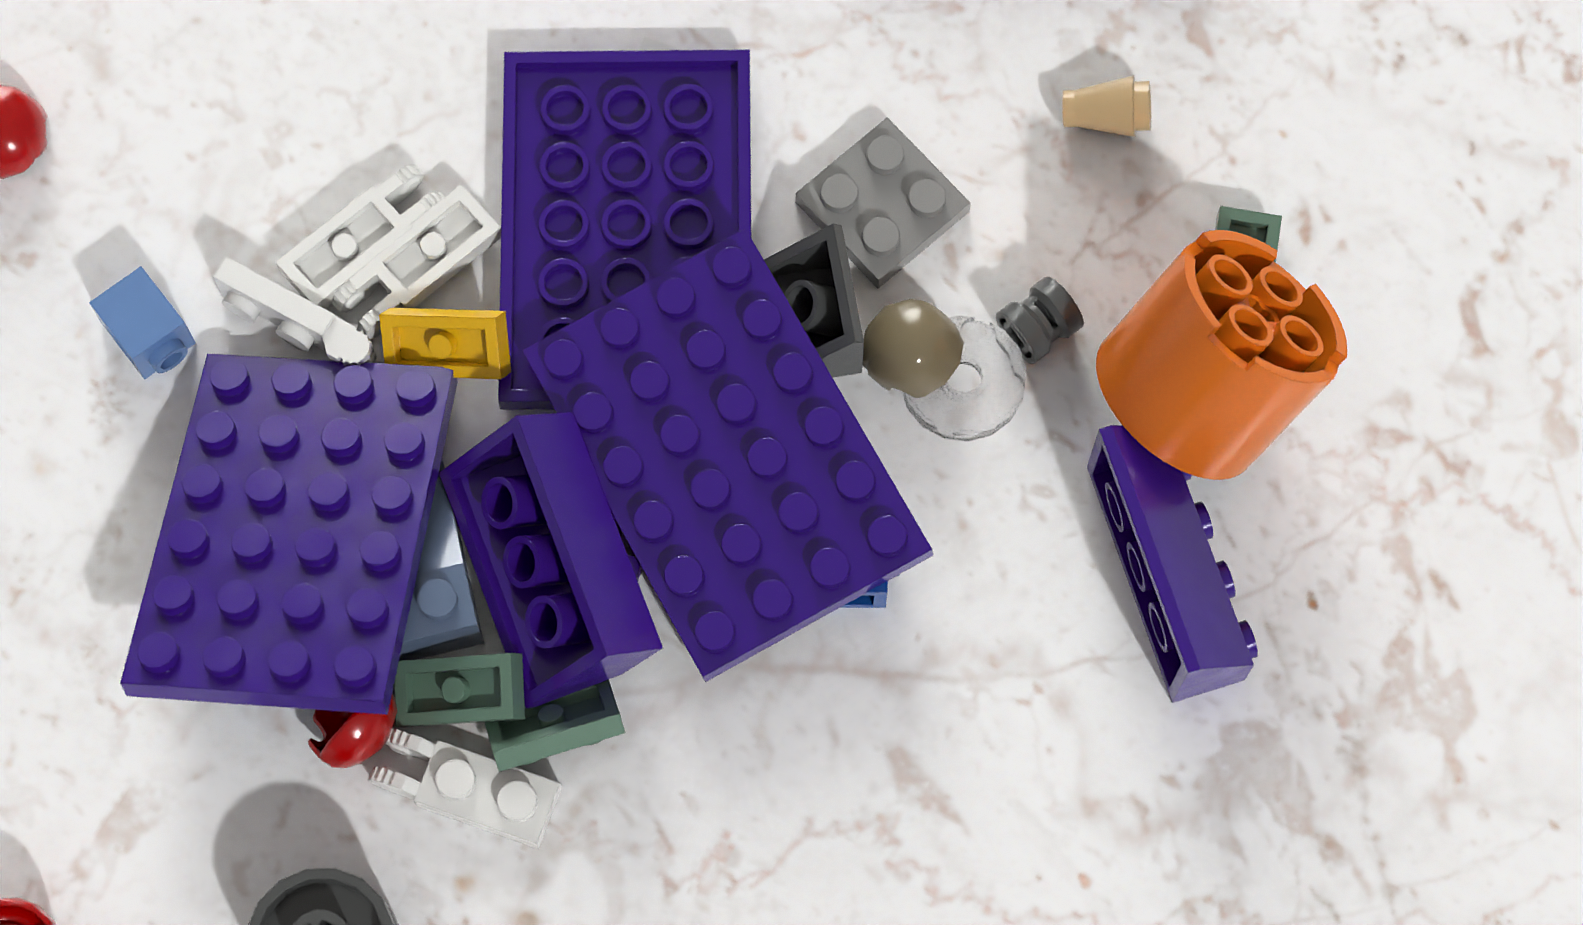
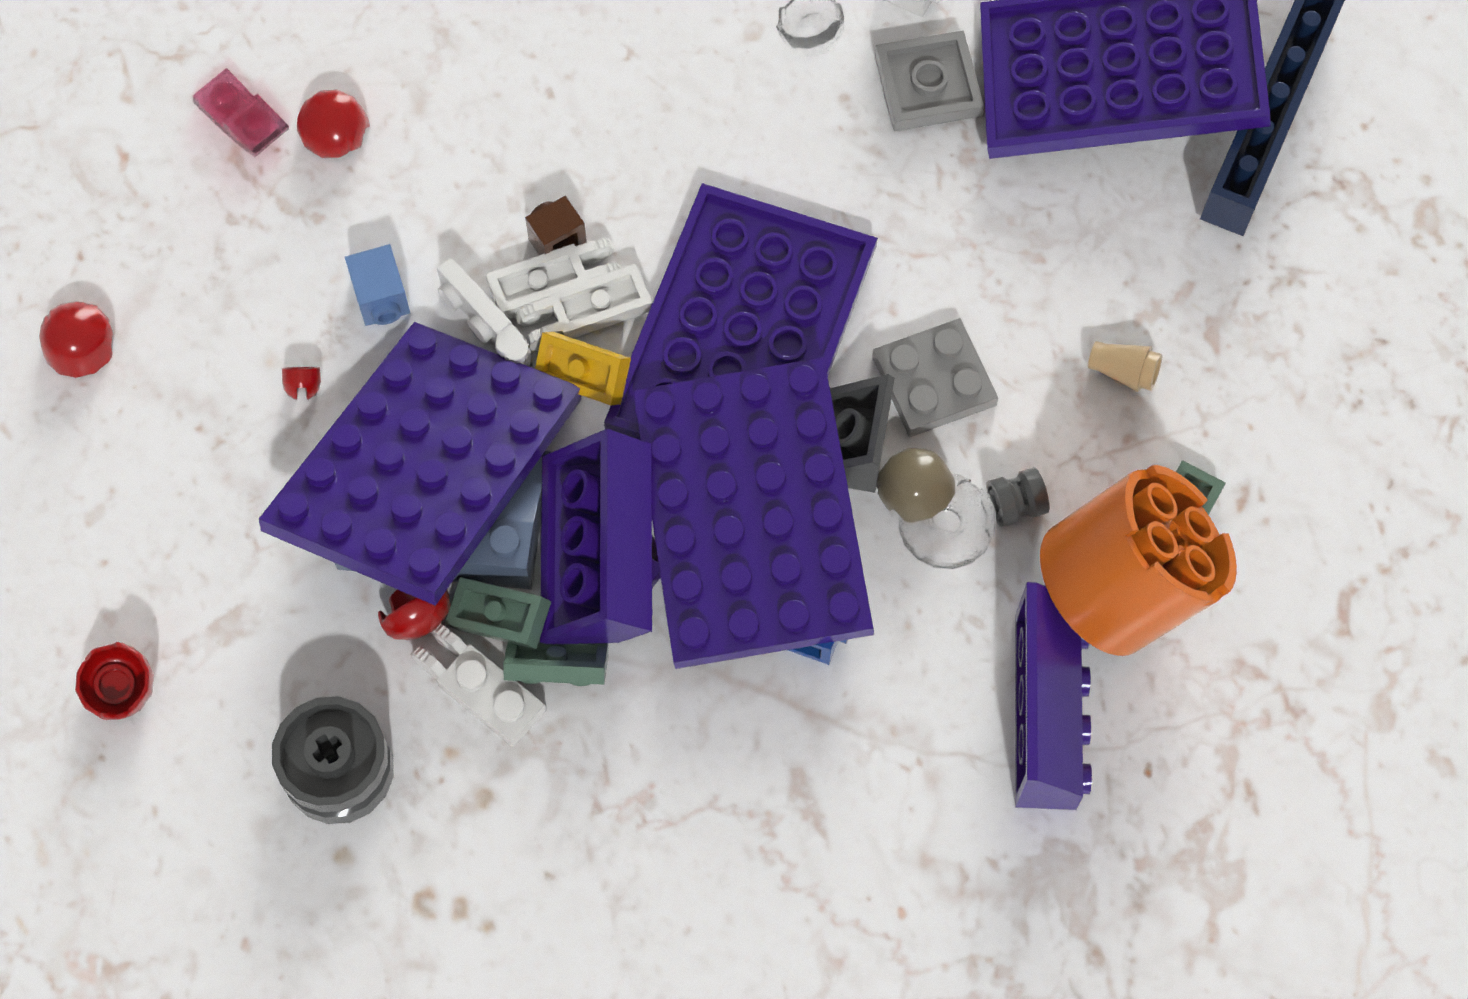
camera: 20 degrees right, 5 degrees down
(92, 476) = (301, 378): none -> red hinge
(340, 171) = (555, 226): none -> reddish brown plate

